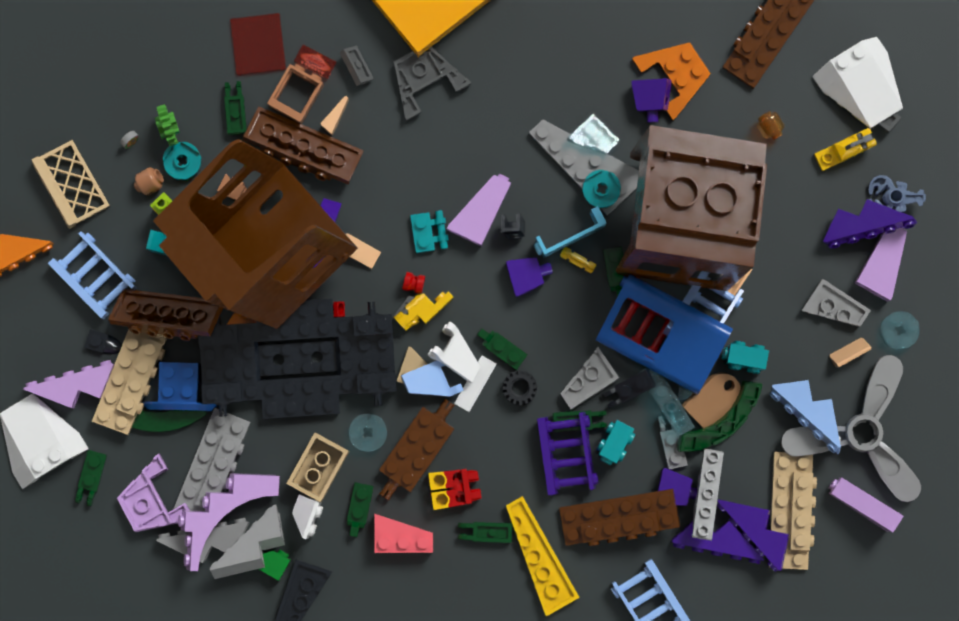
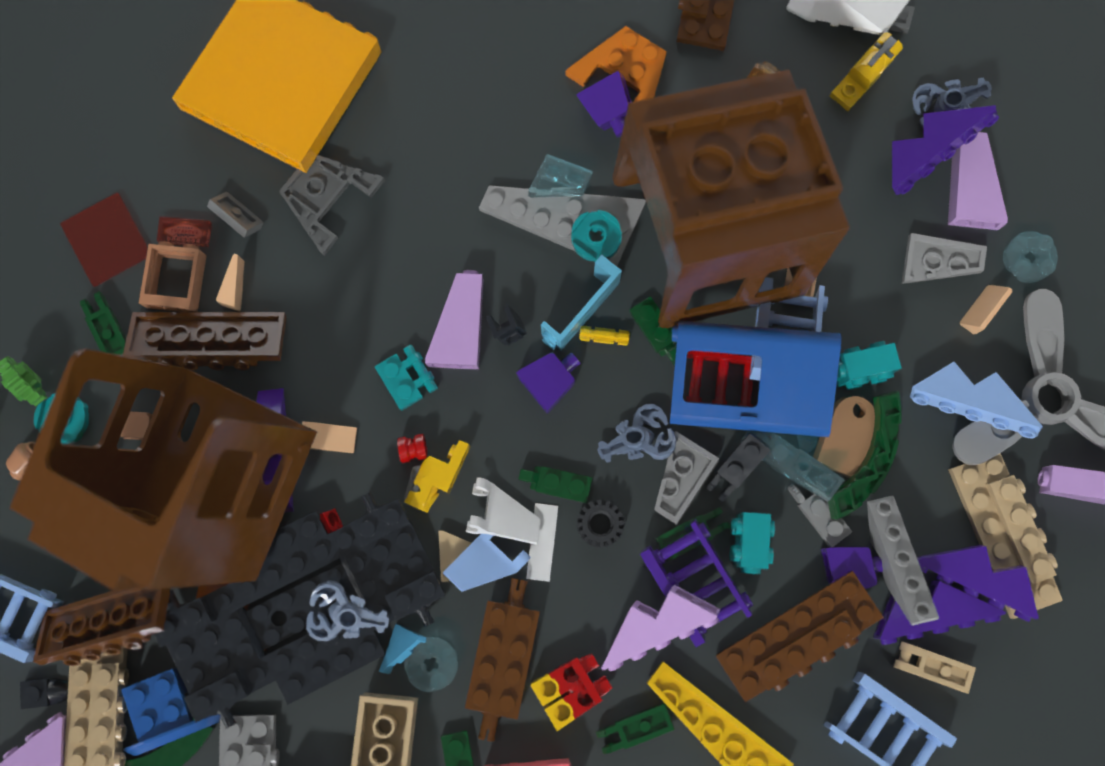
camera: 20 degrees left, 5 degrees down
(325, 374) = (344, 614): none -> sand blue animal
(351, 412) = (400, 647): none -> dark azure tile
(522, 469) = (649, 628): none -> lavender slope
(571, 341) = (639, 438): none -> sand blue animal
(702, 576) = (935, 667): none -> tan plate

